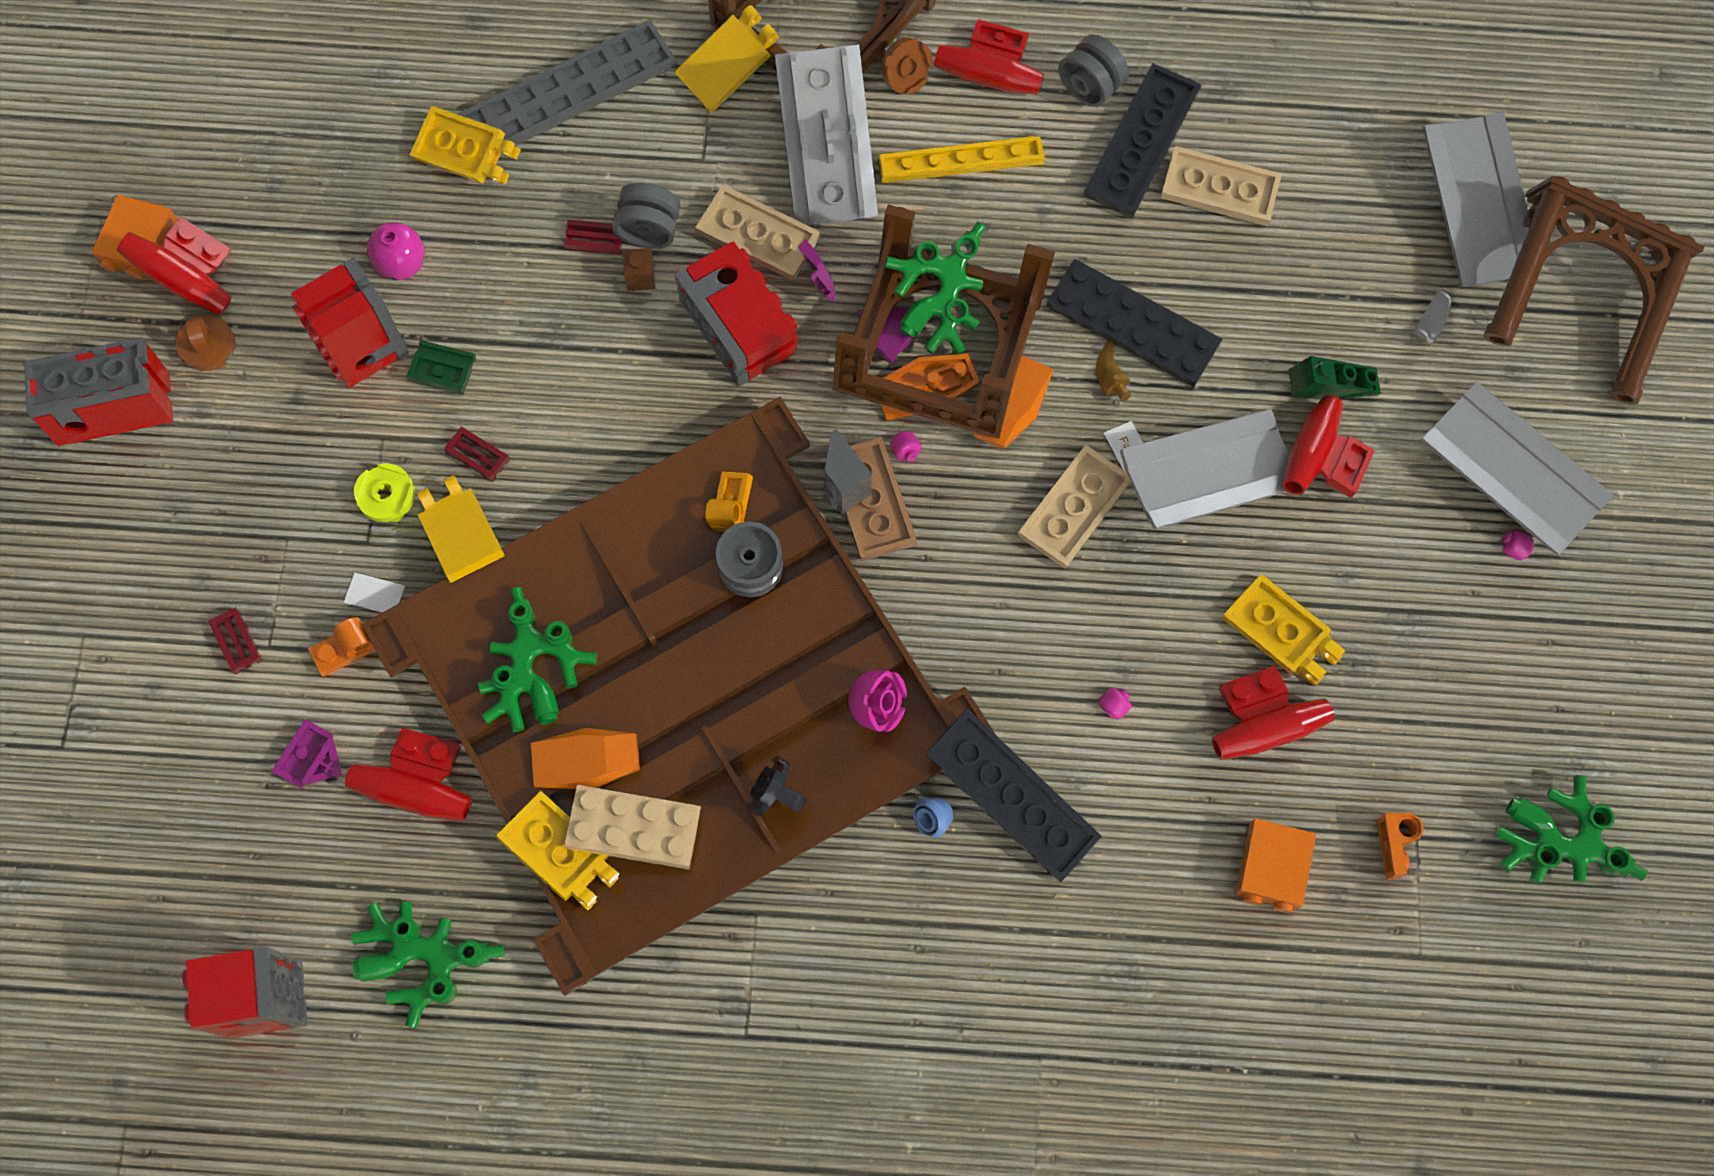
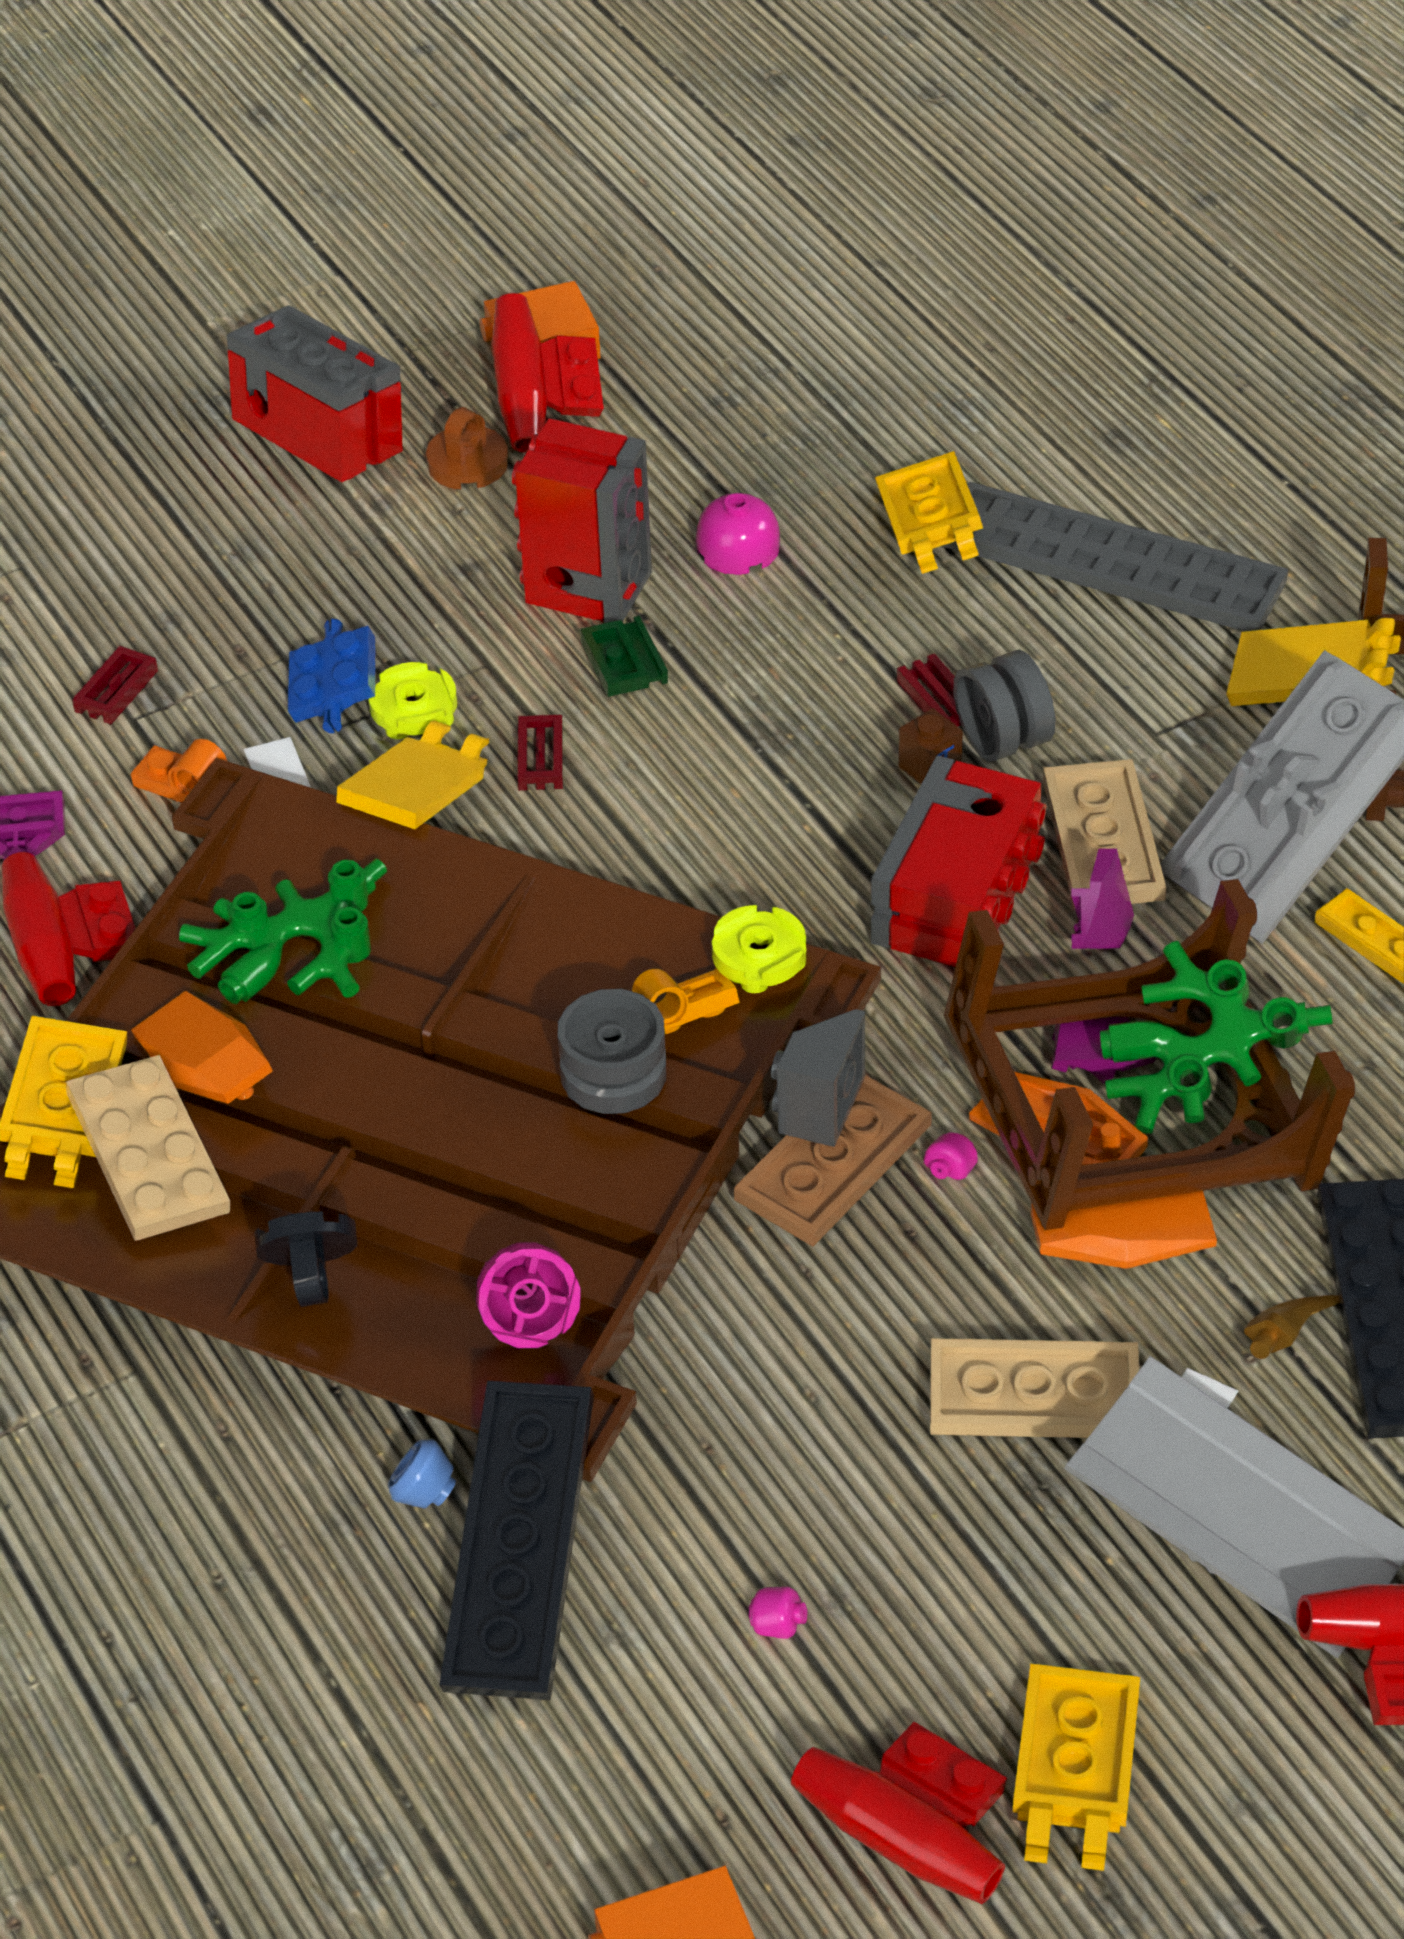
camera: 60 degrees right, 25 degrees down
(332, 522) = (331, 674): none -> blue plate
(718, 432) = (759, 967): none -> neon yellow plate

